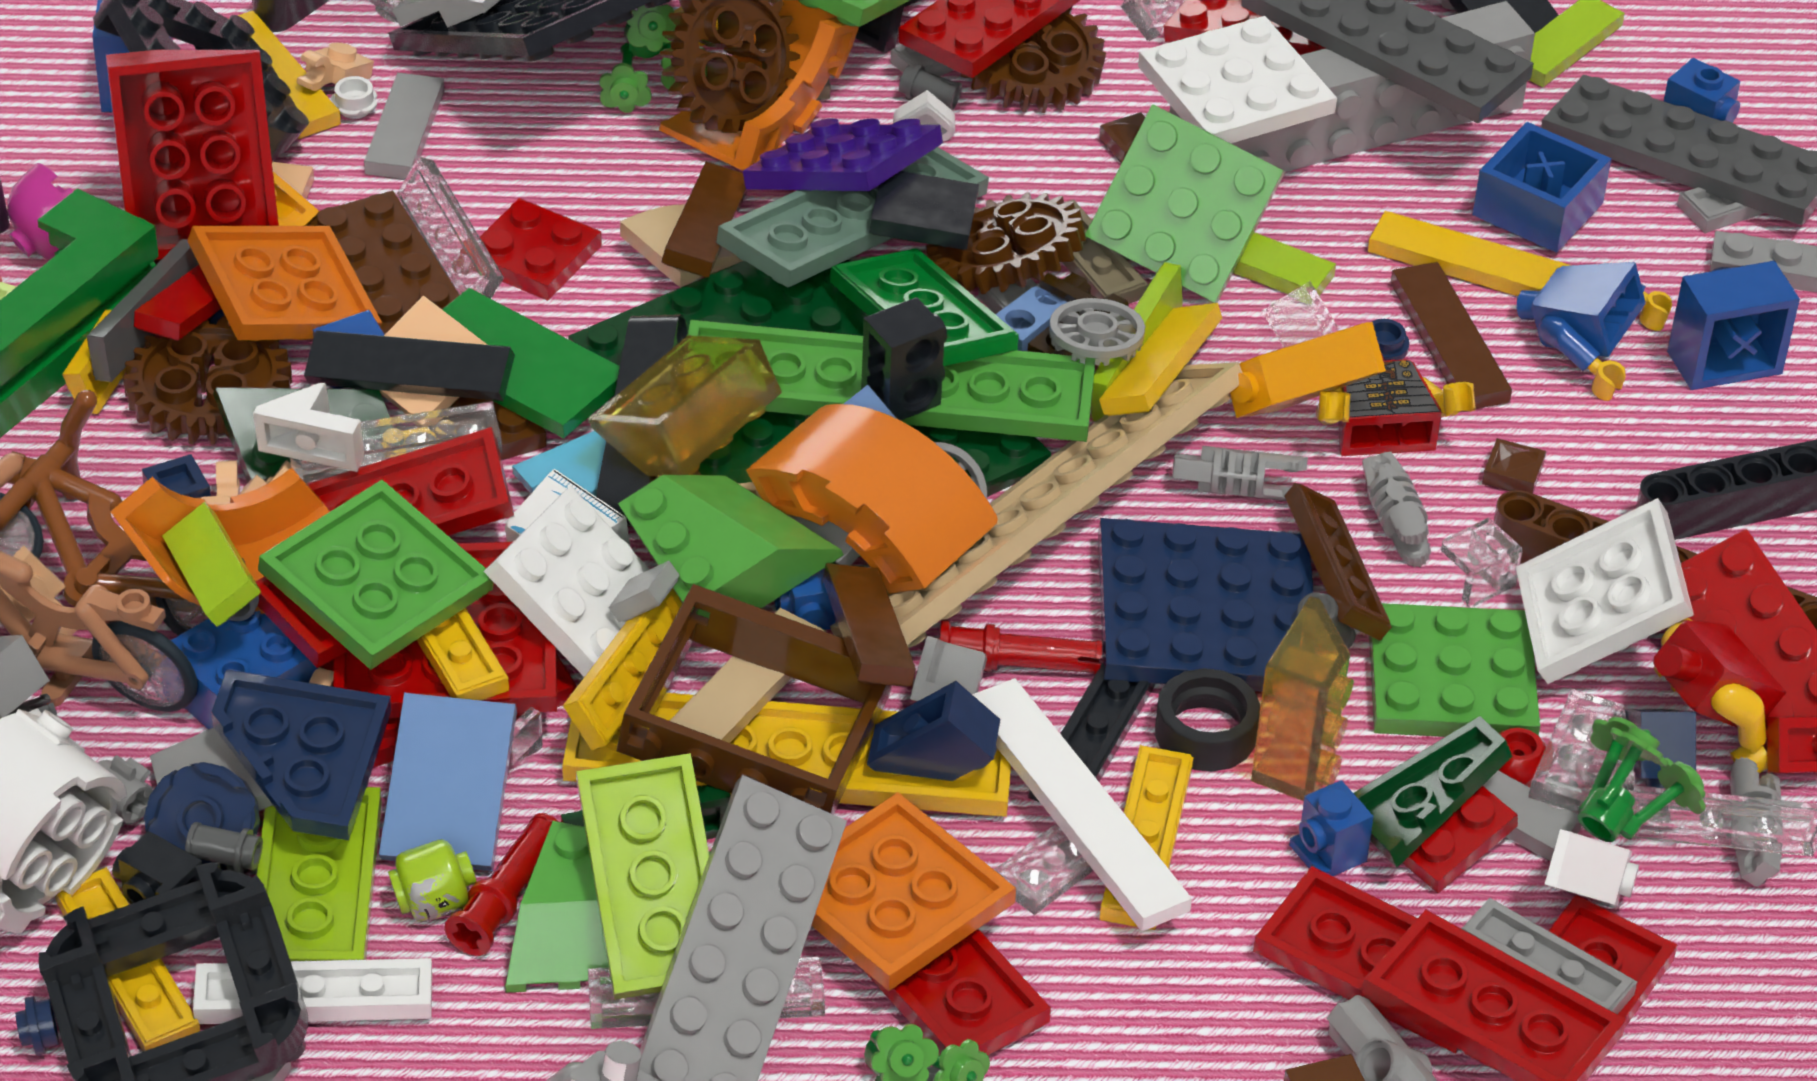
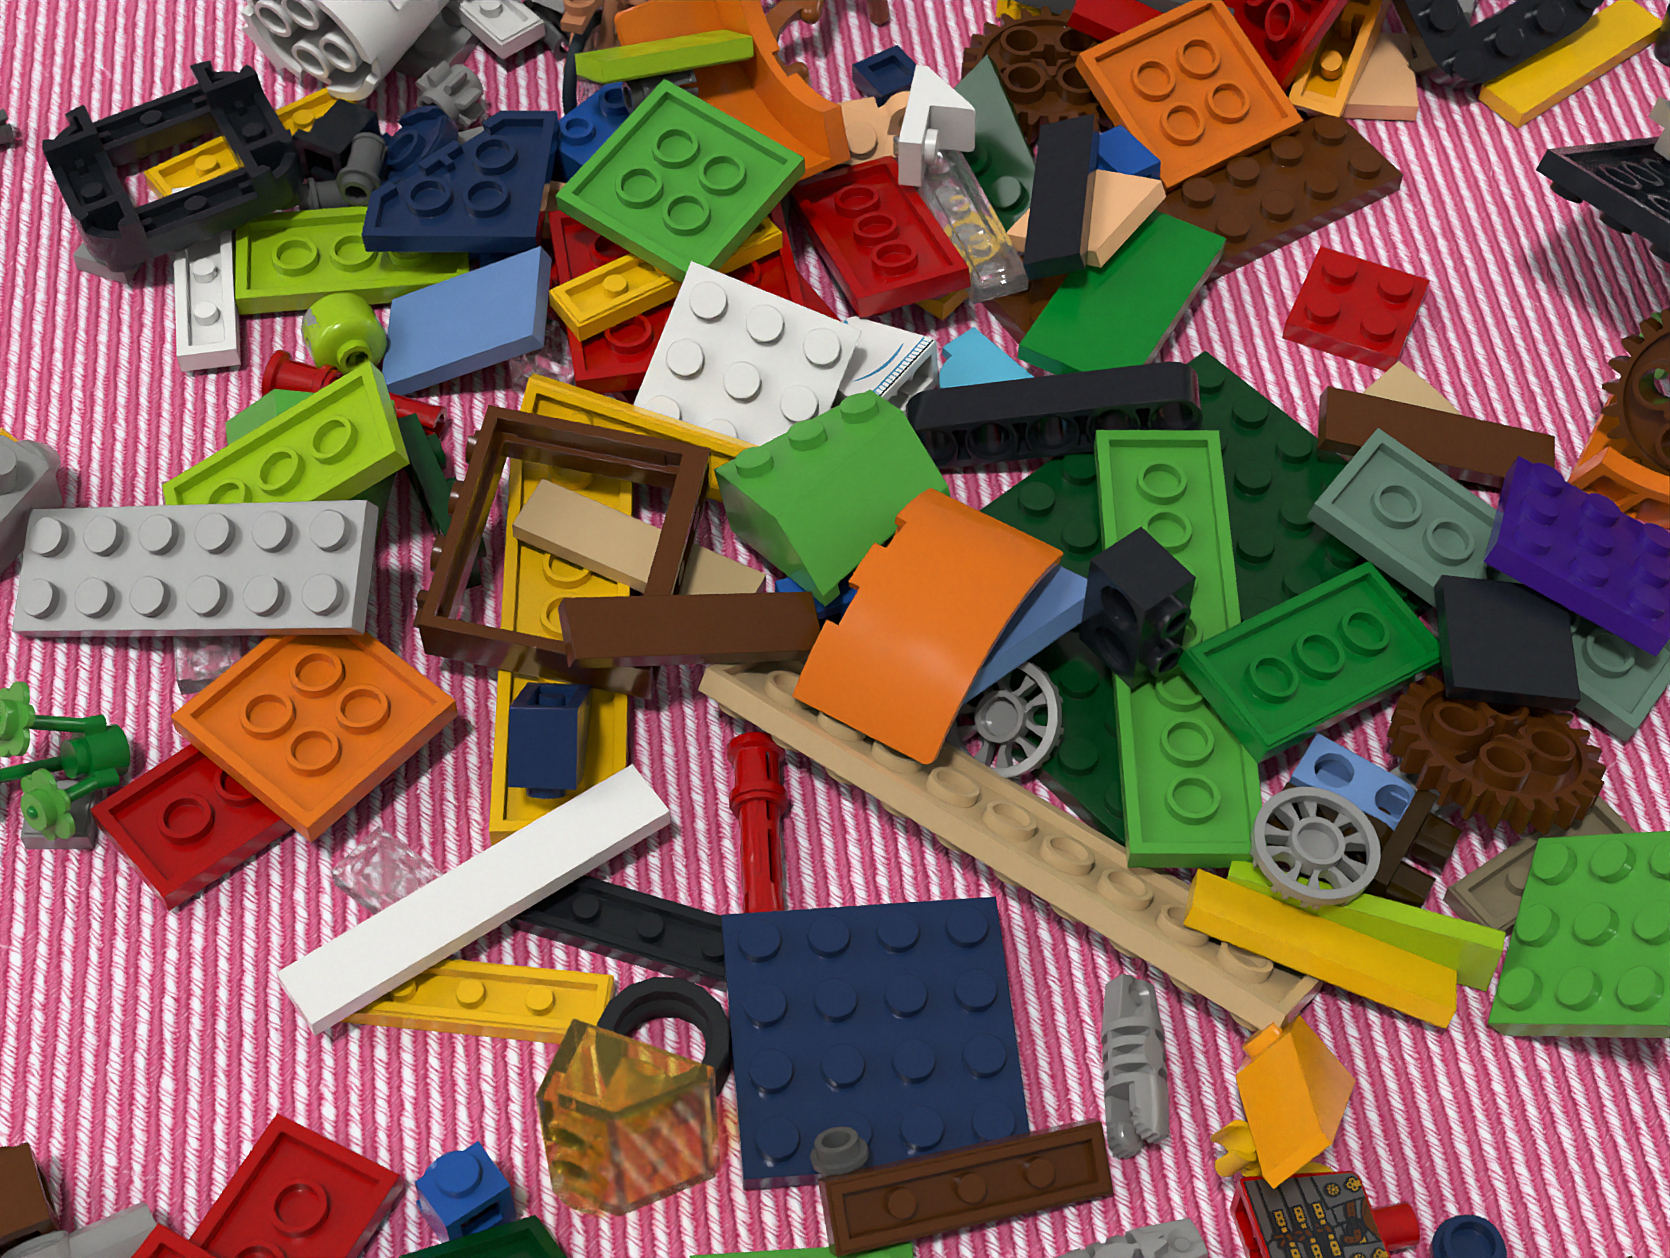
camera: 85 degrees right, 10 degrees up
(37, 1025) = (155, 84): dark blue plate -> none
(332, 65) = (1594, 97): light nougat plate -> none
(354, 97) = (1553, 124): white plate -> none
(404, 125) = (1495, 174): light grey tile -> none
(448, 230) = (1335, 225): clear tile -> none
(644, 592) = (724, 425): light grey tile -> none
(688, 404) = (1031, 425): clear yellow slope -> none
(944, 664) = (681, 749): light grey panel -> none
(1283, 266) = (1599, 1106): lime tile -> none
(1299, 316) = (1472, 1132): clear panel -> none

